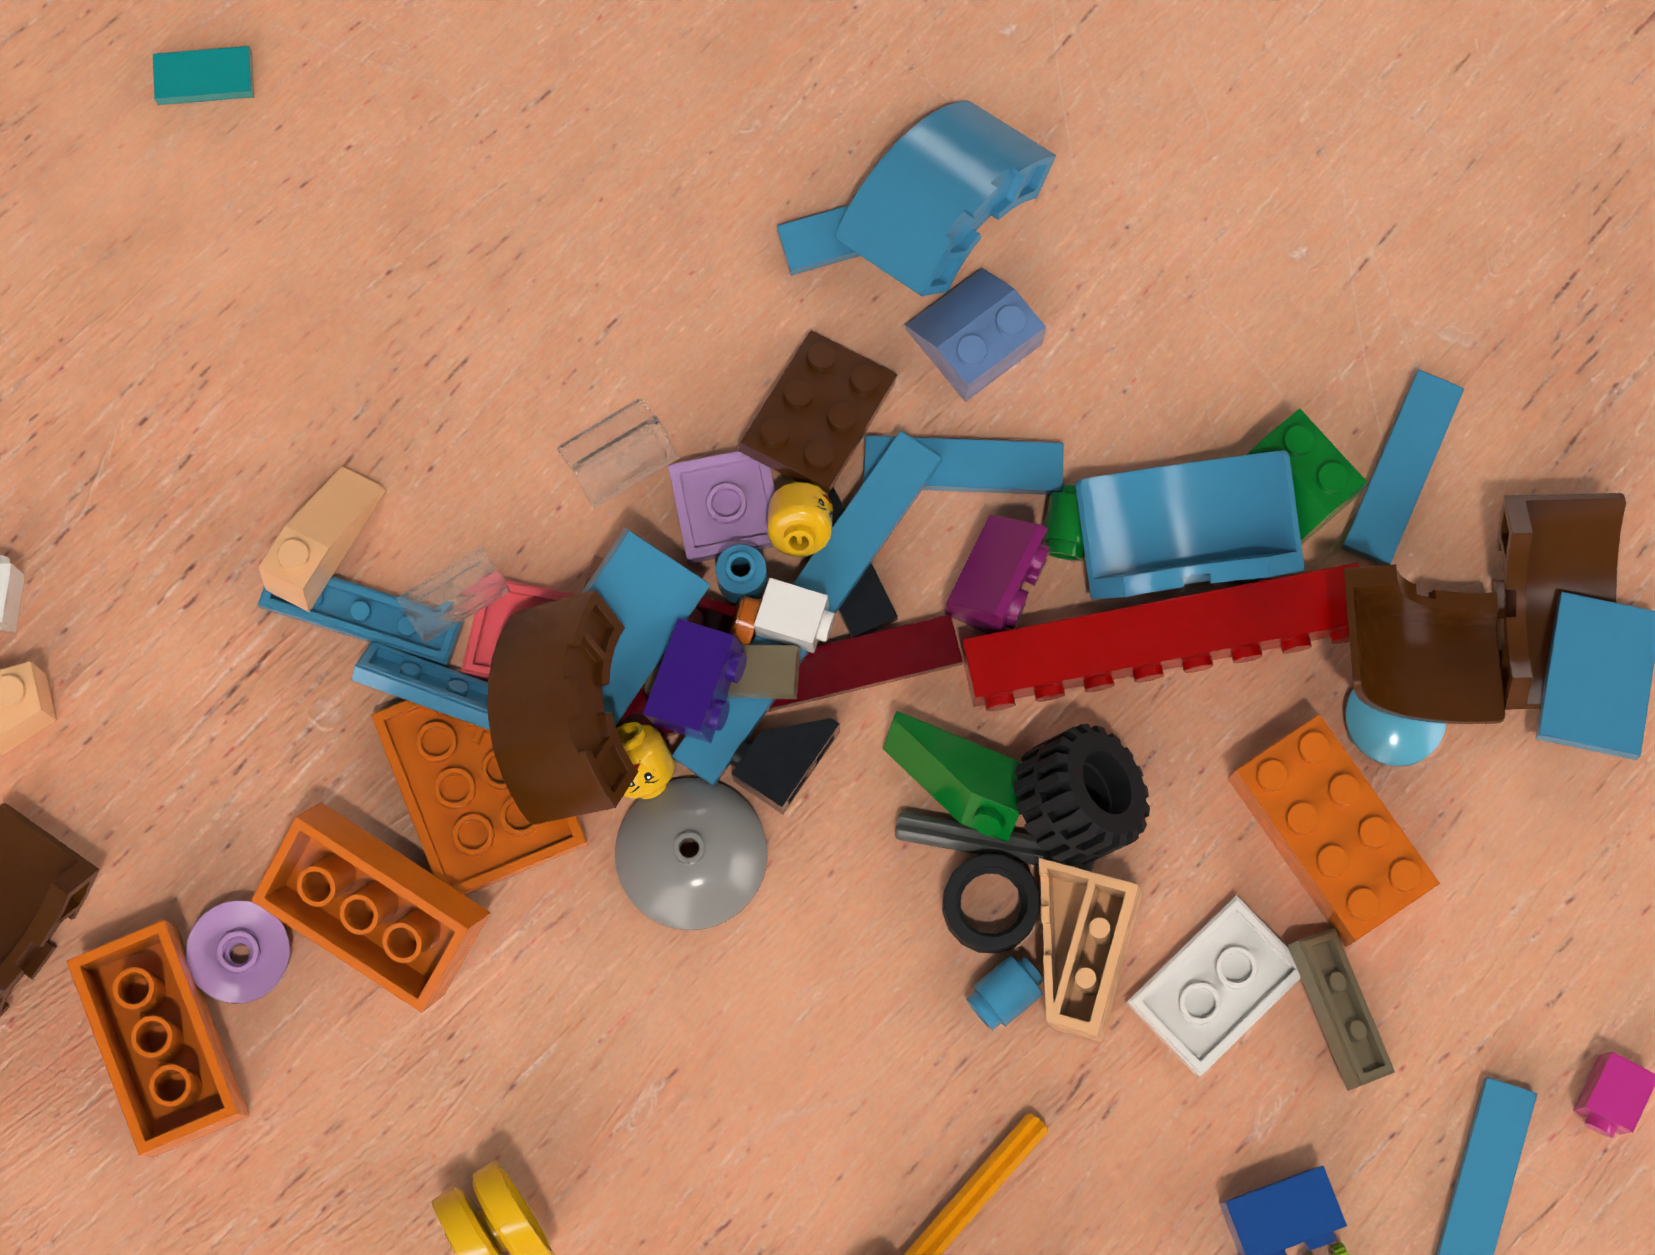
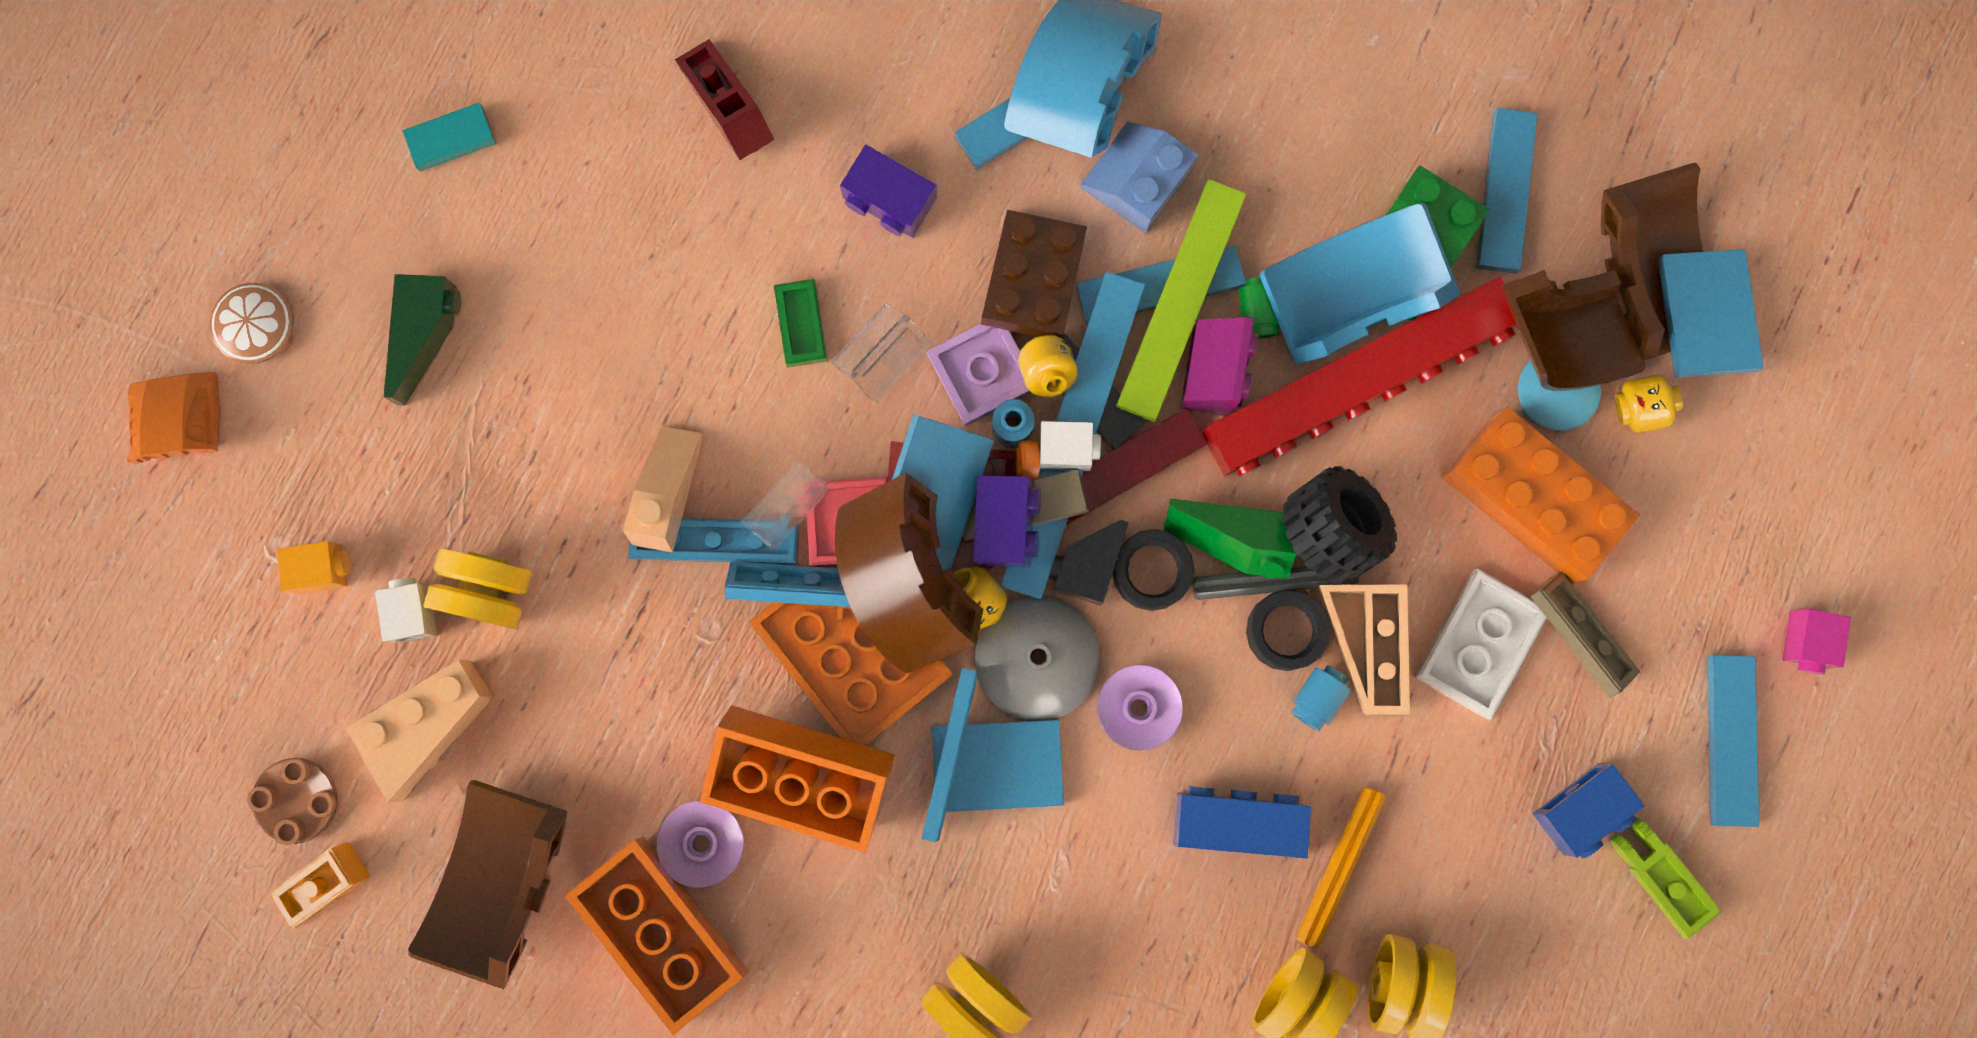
camera: 20 degrees left, 5 degrees up
(79, 585) = (478, 588): none -> yellow wheel
(101, 280) = (418, 327): none -> dark green slope
(526, 118) = (725, 99): none -> dark red slope
(535, 394) = (800, 323): none -> green tile
(553, 931) = (950, 755): none -> dark azure tile
(606, 963) = (1005, 766): none -> dark azure tile
(679, 273) = (888, 192): none -> dark purple brick
(787, 915) = (1162, 707): none -> lavender dish
(854, 750) = (1184, 565): none -> black tyre
(869, 1110) = (1242, 823): none -> blue brick
(979, 488) = (1181, 300): none -> lime tile
(1494, 761) = (1648, 404): none -> yellow head

